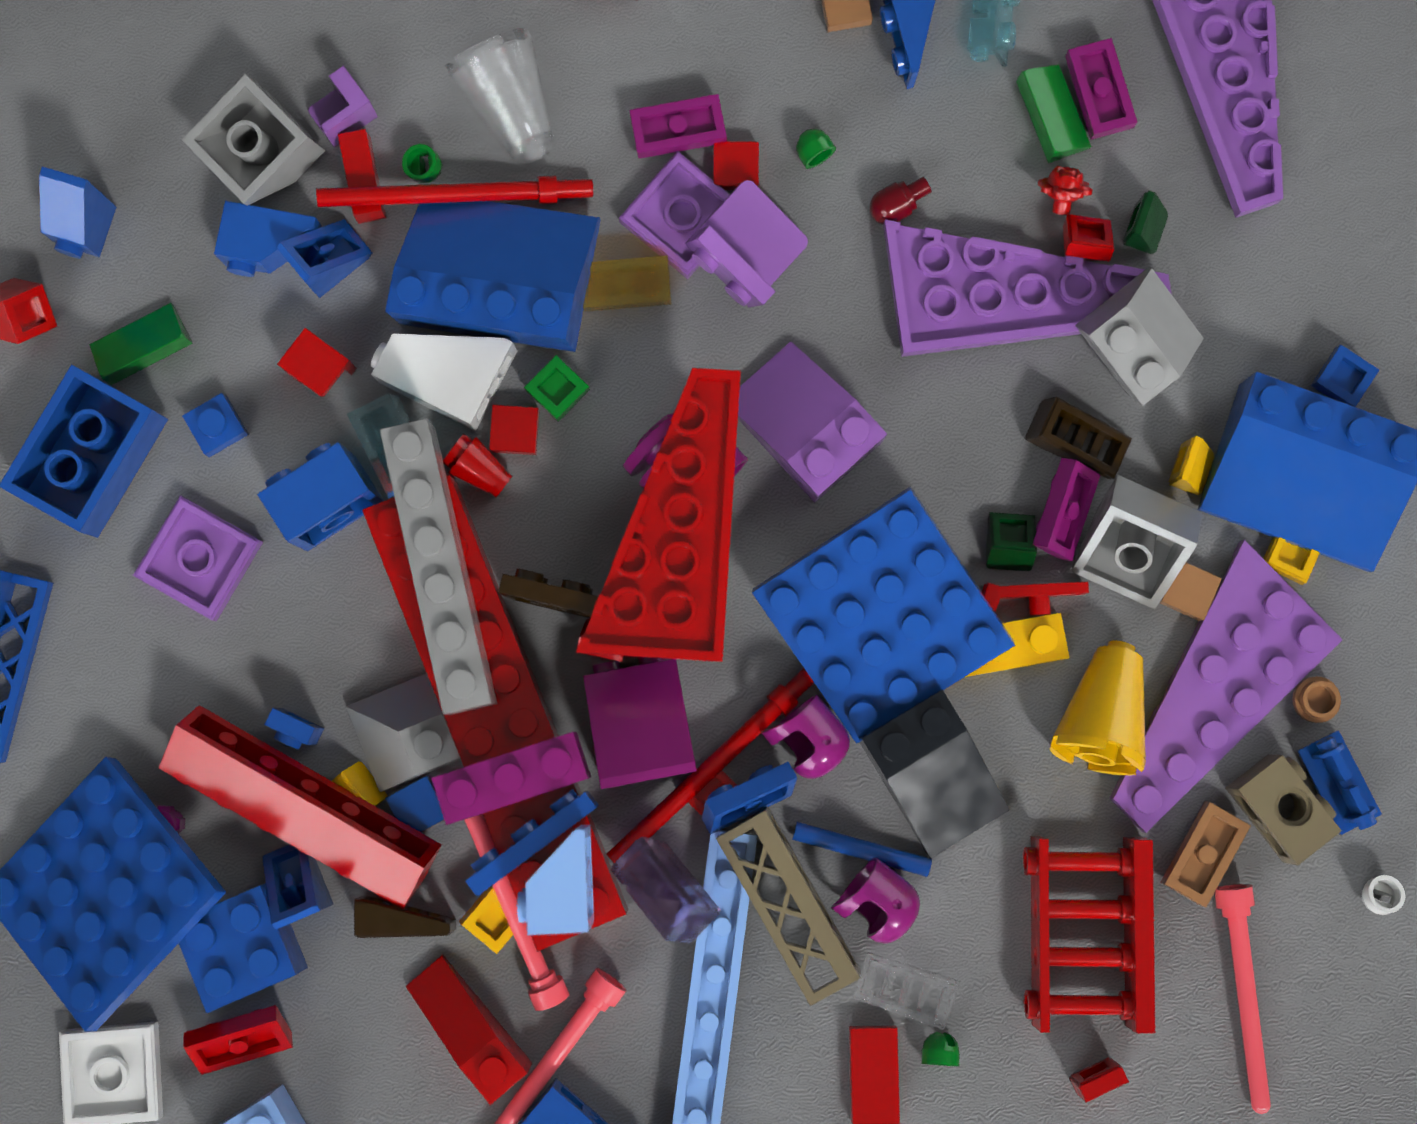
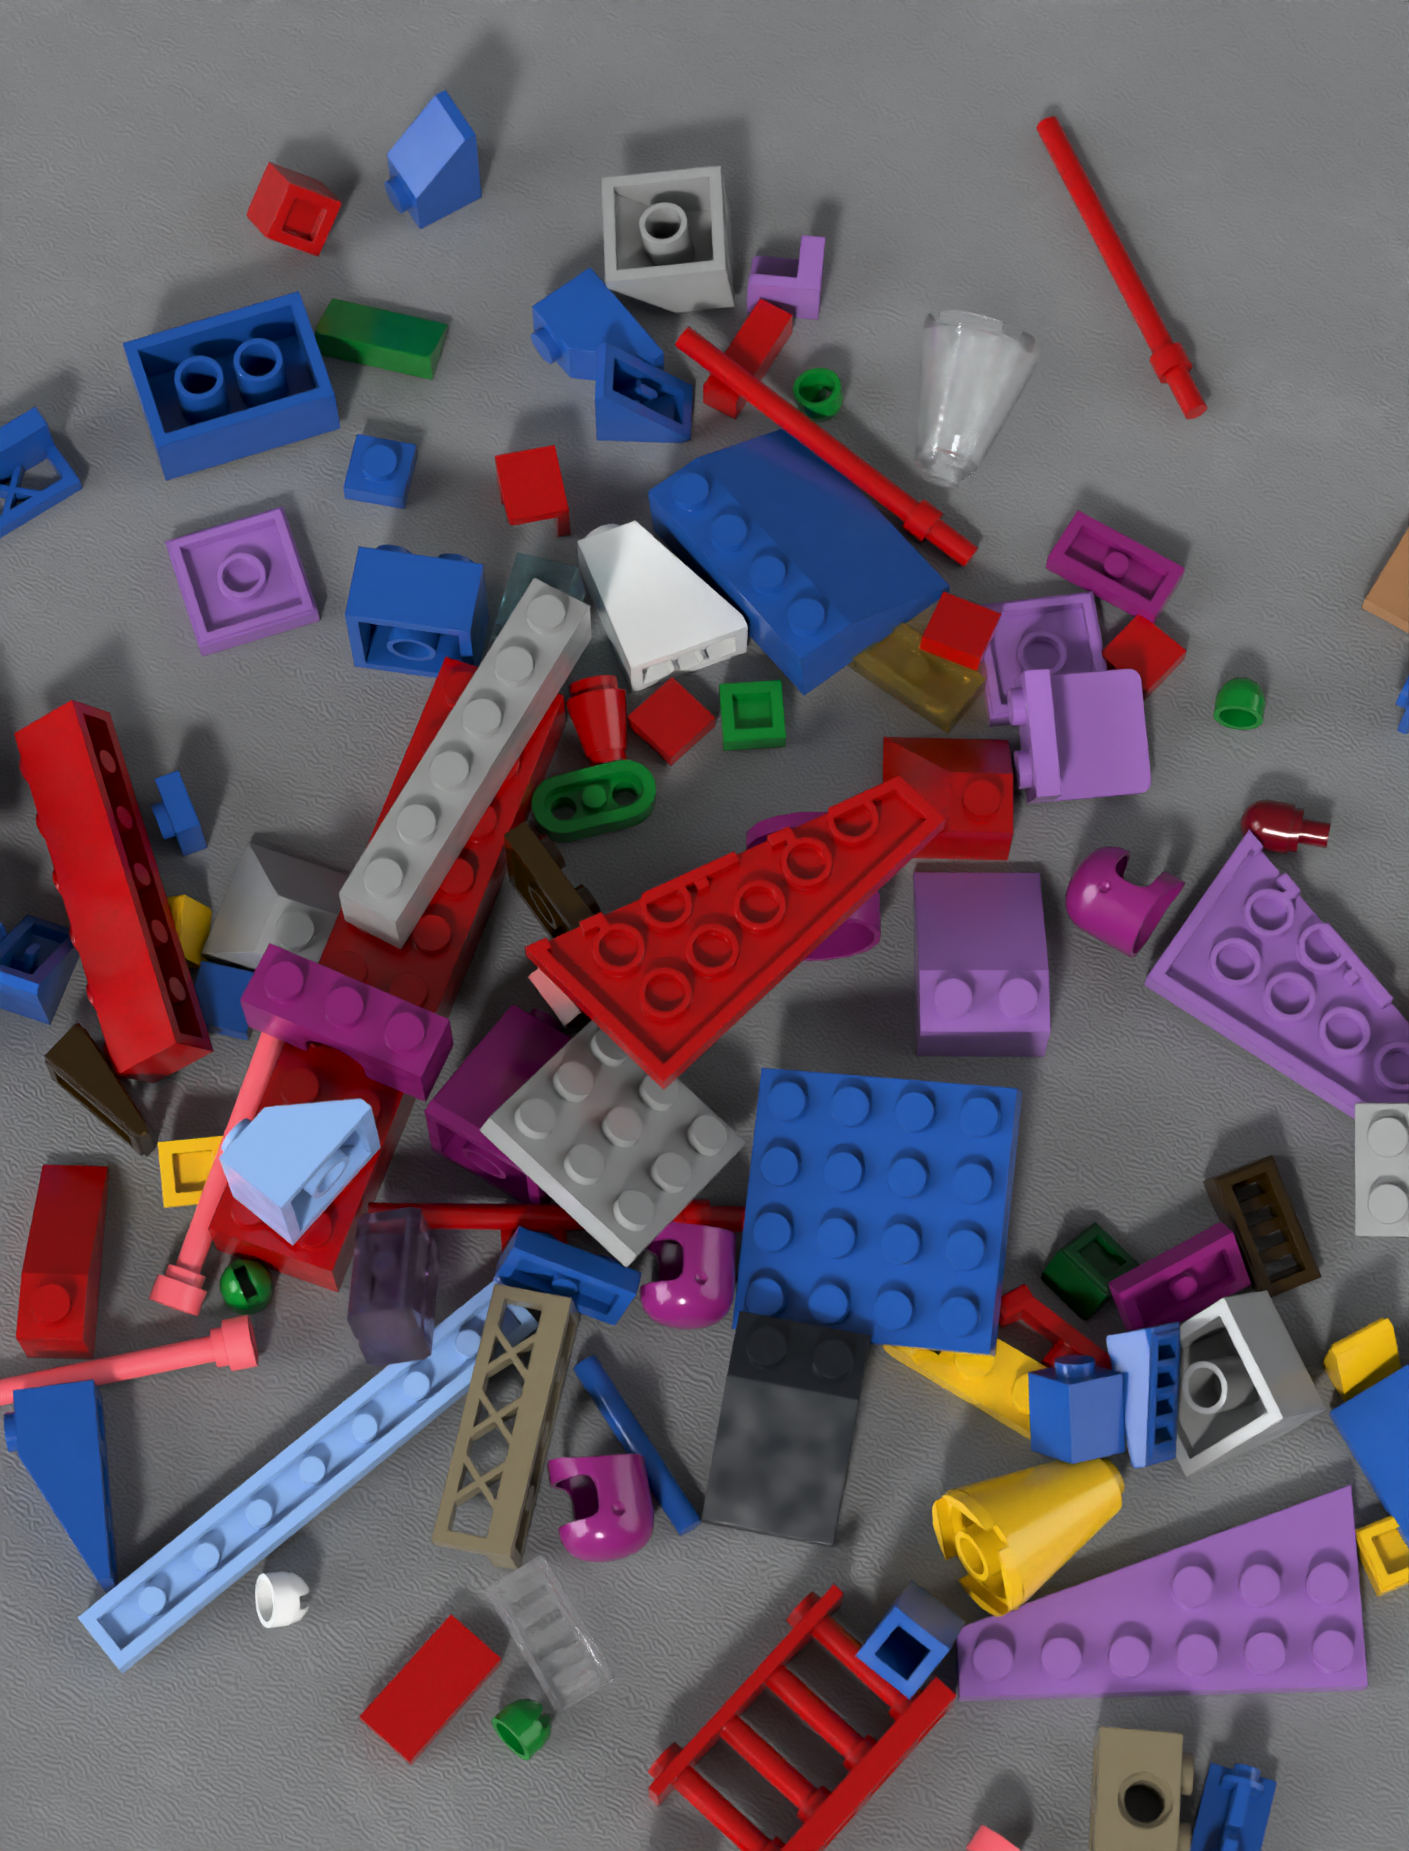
camera: 45 degrees right, 15 degrees down
(512, 513) = (591, 797): none -> green plate
(530, 840) = (246, 1091): blue plate -> none
(581, 942) = (232, 1292): none -> green hinge
(630, 240) = (960, 631): none -> red tile
(704, 332) = (966, 784): none -> red slope
(716, 714) = (612, 1142): none -> light grey plate
(755, 1101) = (279, 1598): none -> white hinge
(850, 329) = (1113, 908): none -> magenta helmet
(1080, 631) = (1076, 1410): none -> blue brick
(1099, 581) = (1150, 1390): none -> blue slope
(1101, 830) = (910, 1639): none -> blue brick
(1192, 592) = (1242, 1487): medium nougat tile -> none
(1205, 854) = (1005, 1778): medium nougat plate -> none
(1316, 699) = (1281, 1727): medium nougat plate -> none

